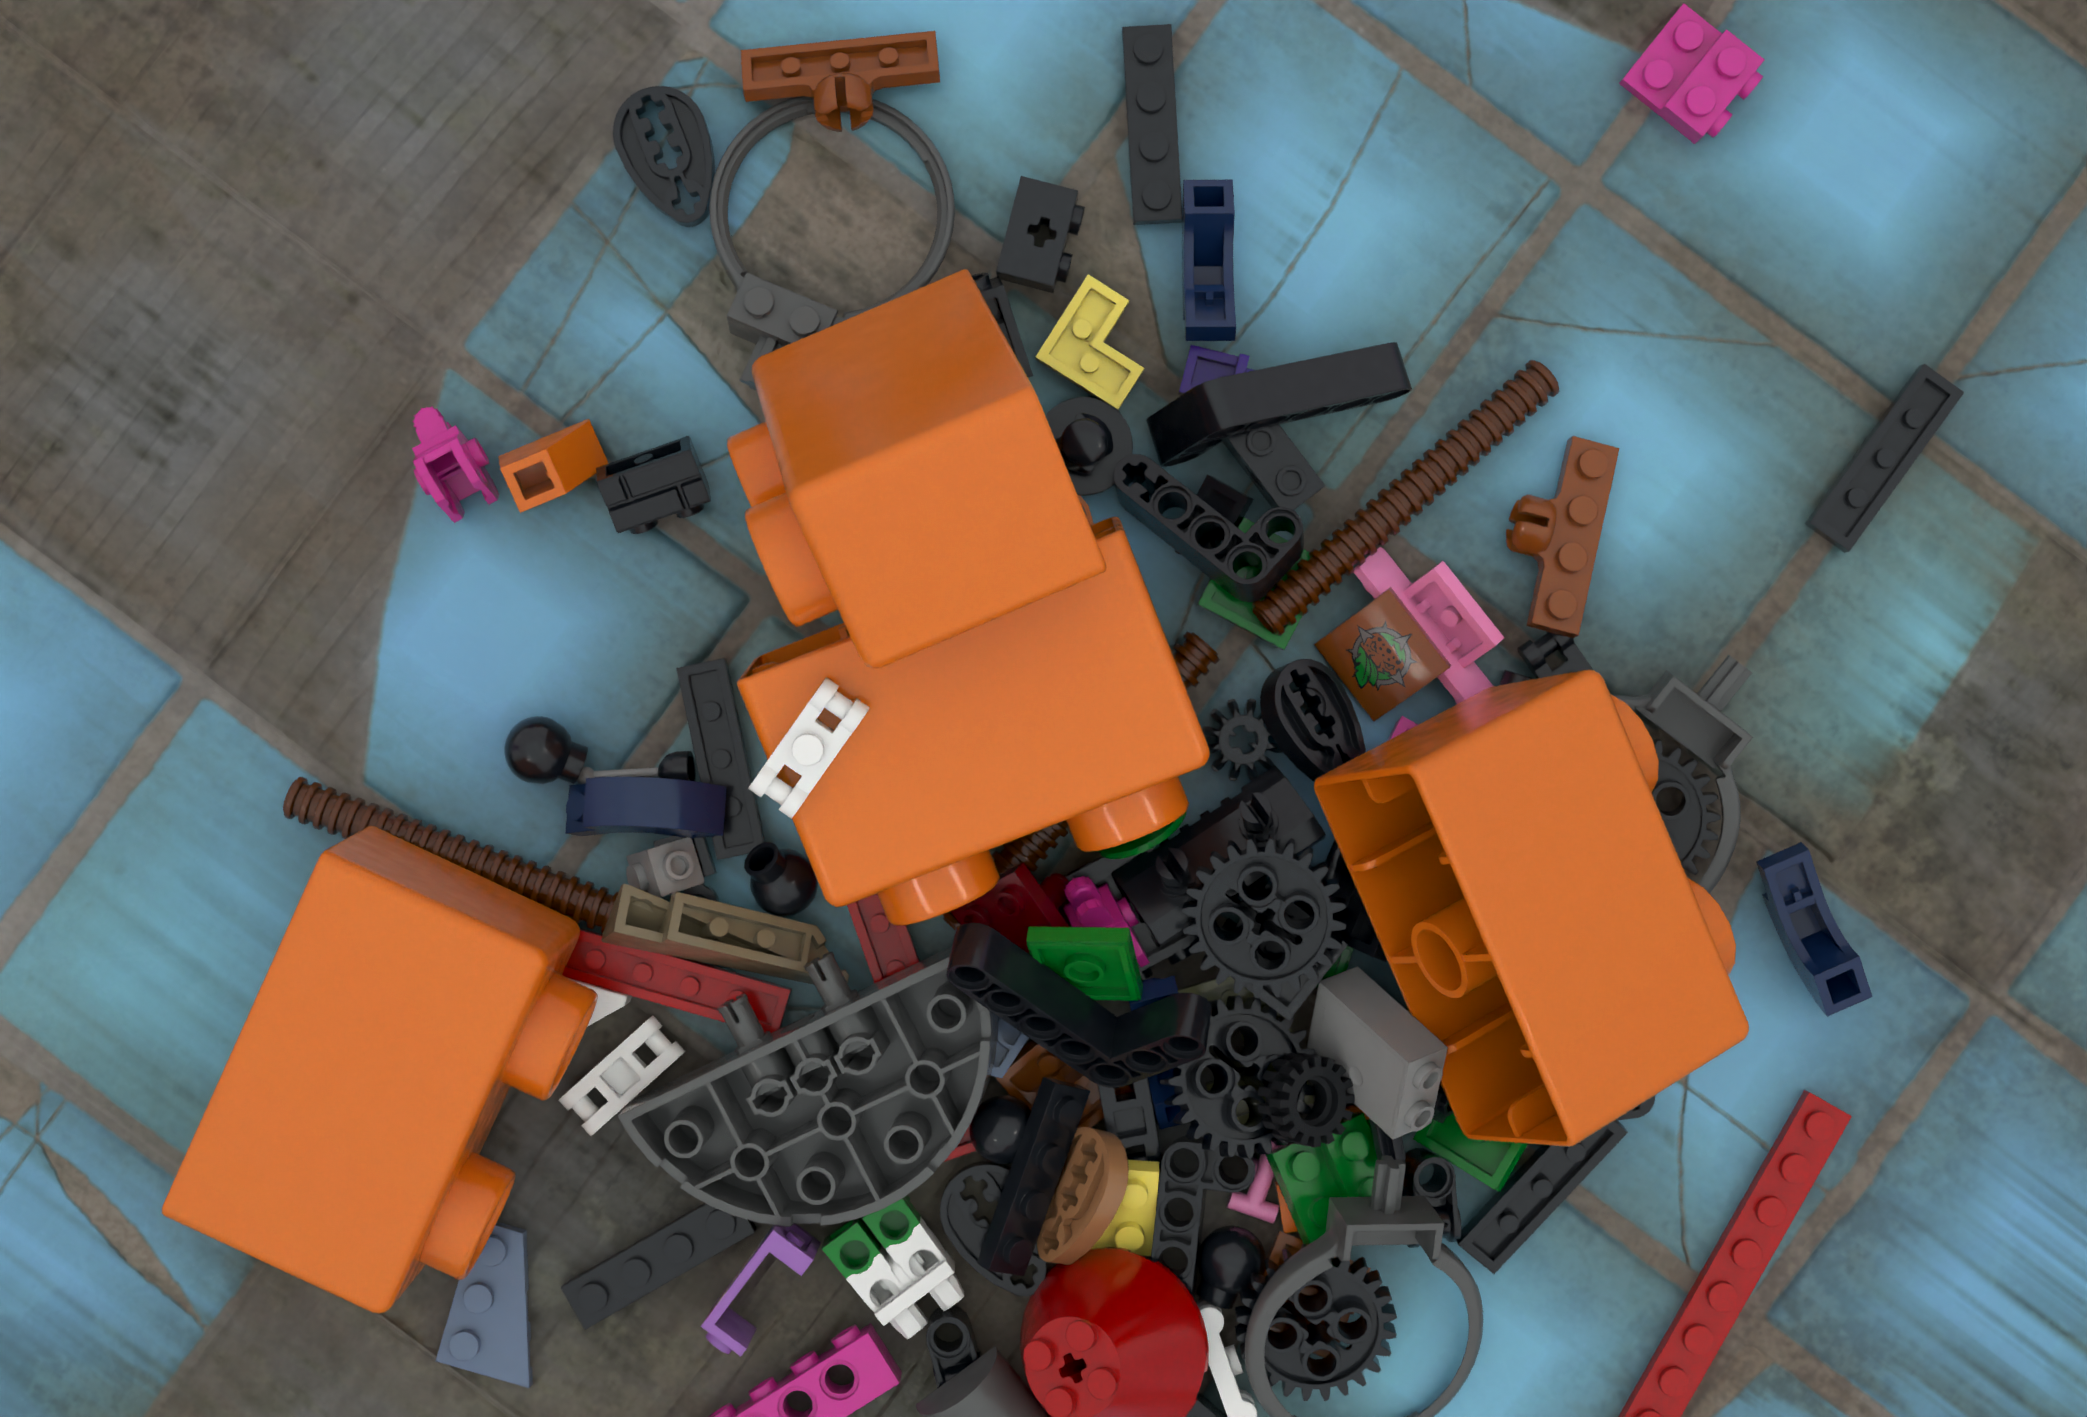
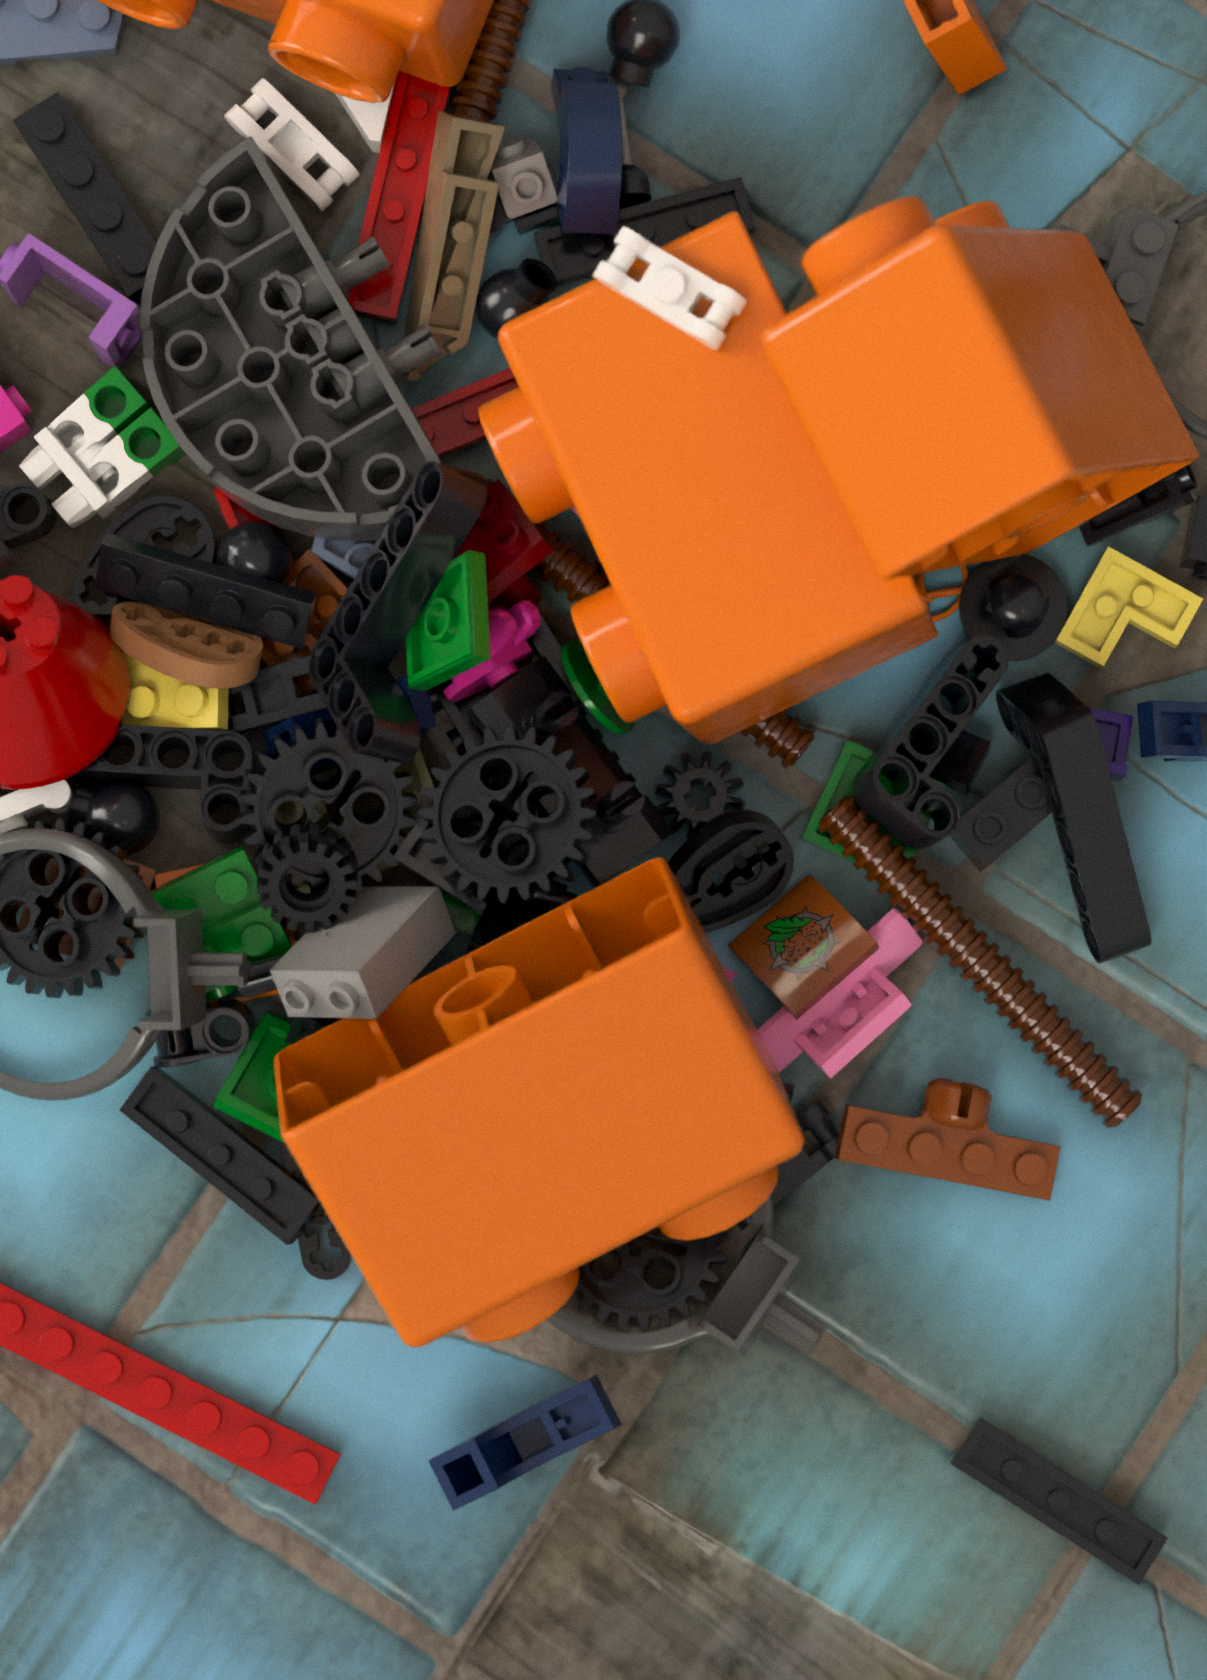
camera: 85 degrees right, 5 degrees down
(654, 486) = (938, 141): black brick -> none
(1254, 1201) = (186, 842): bright pink piece -> none

